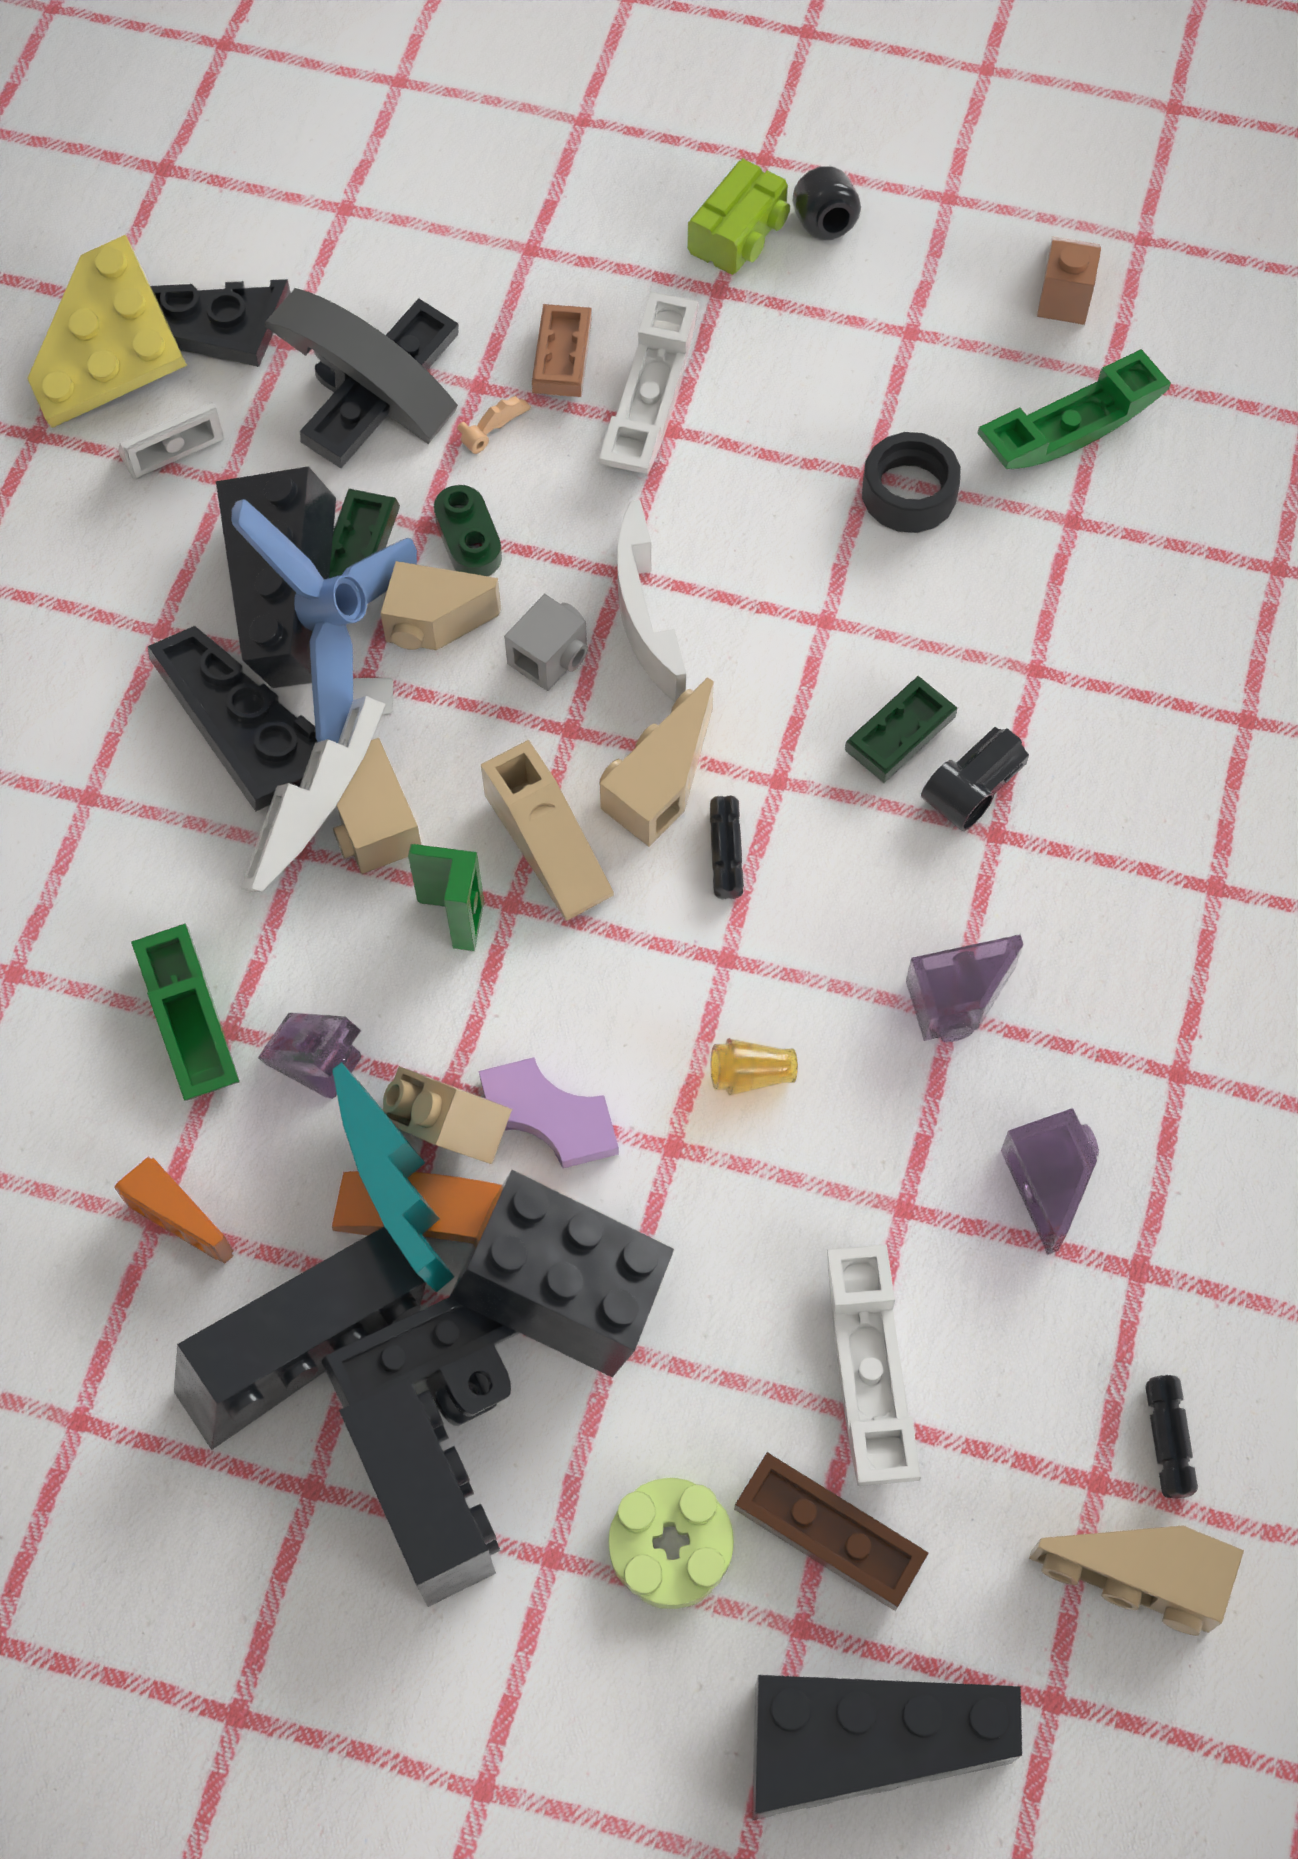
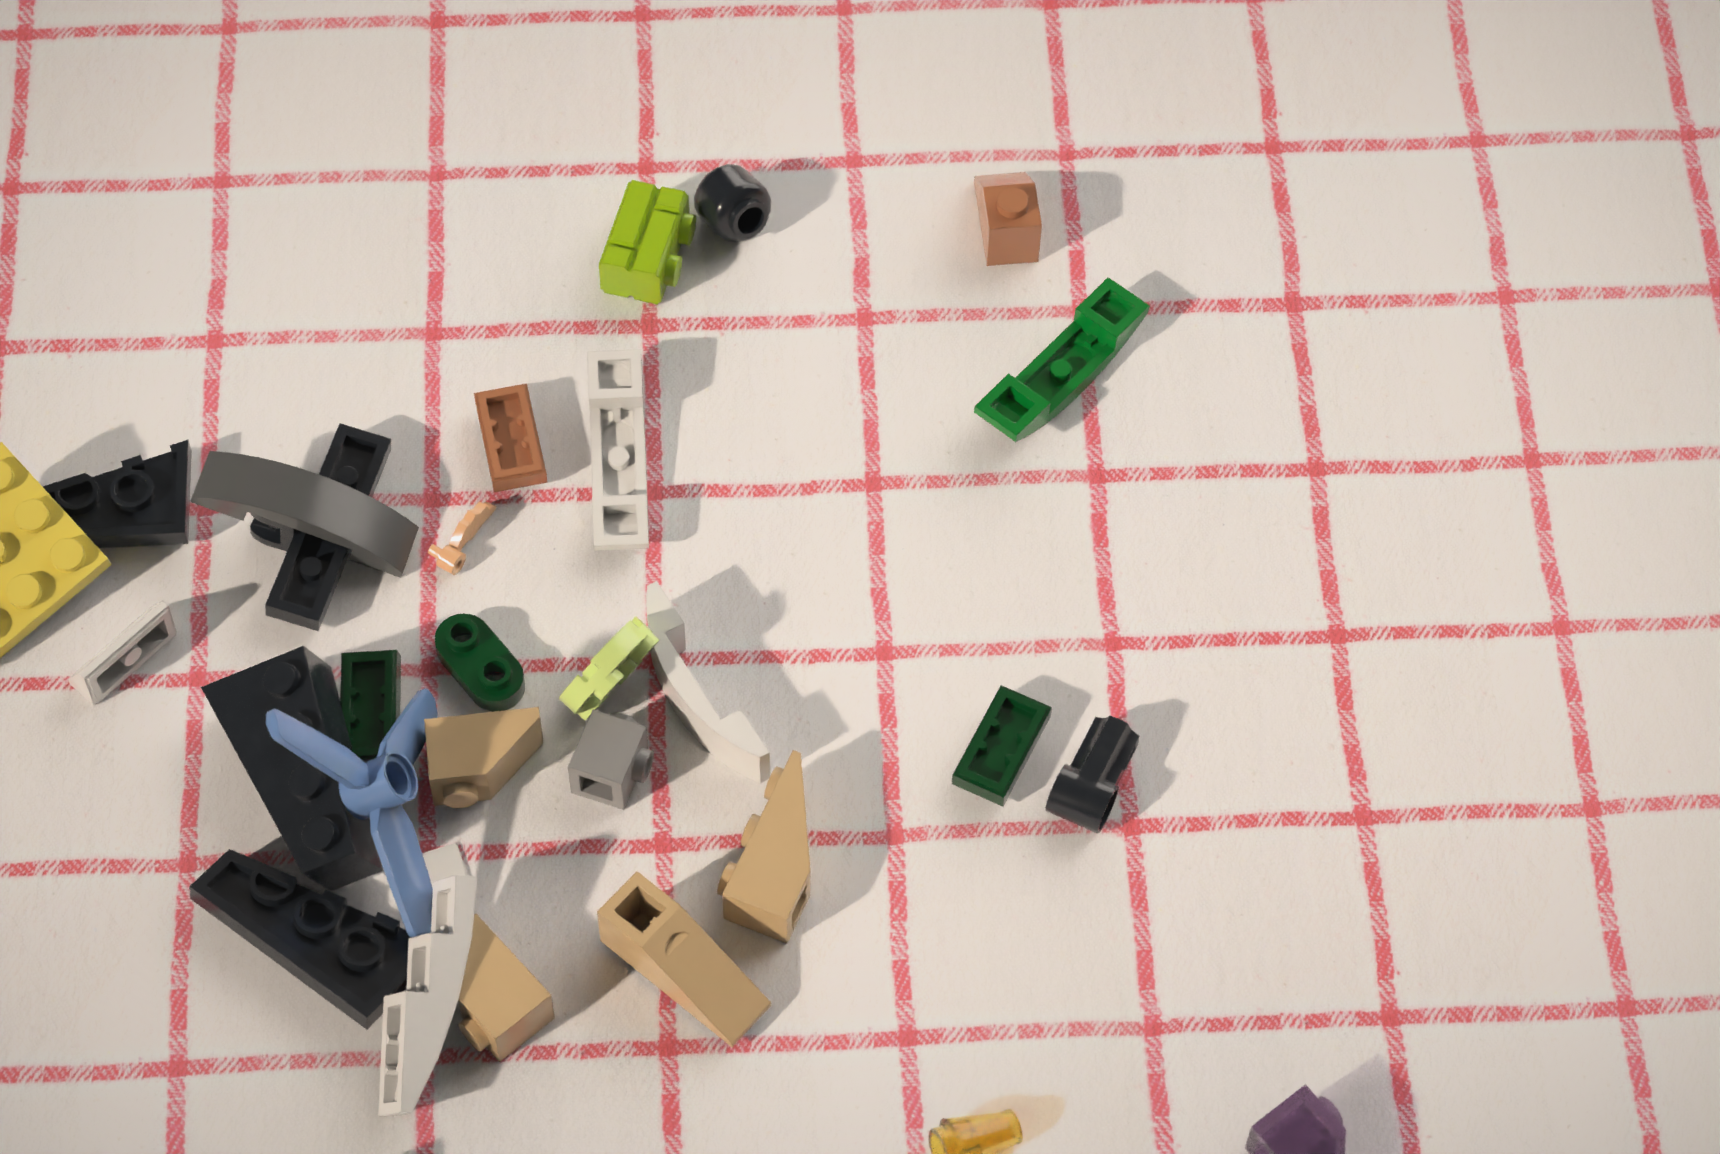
camera: 20 degrees left, 5 degrees down
(451, 881) = (606, 1042): green panel -> none
(573, 557) = (609, 667): none -> yellowish green plate
(726, 847) = (868, 921): black axle -> none
(918, 451) = (925, 446): black tyre -> none
(959, 986) = (1150, 995): clear purple slope -> none

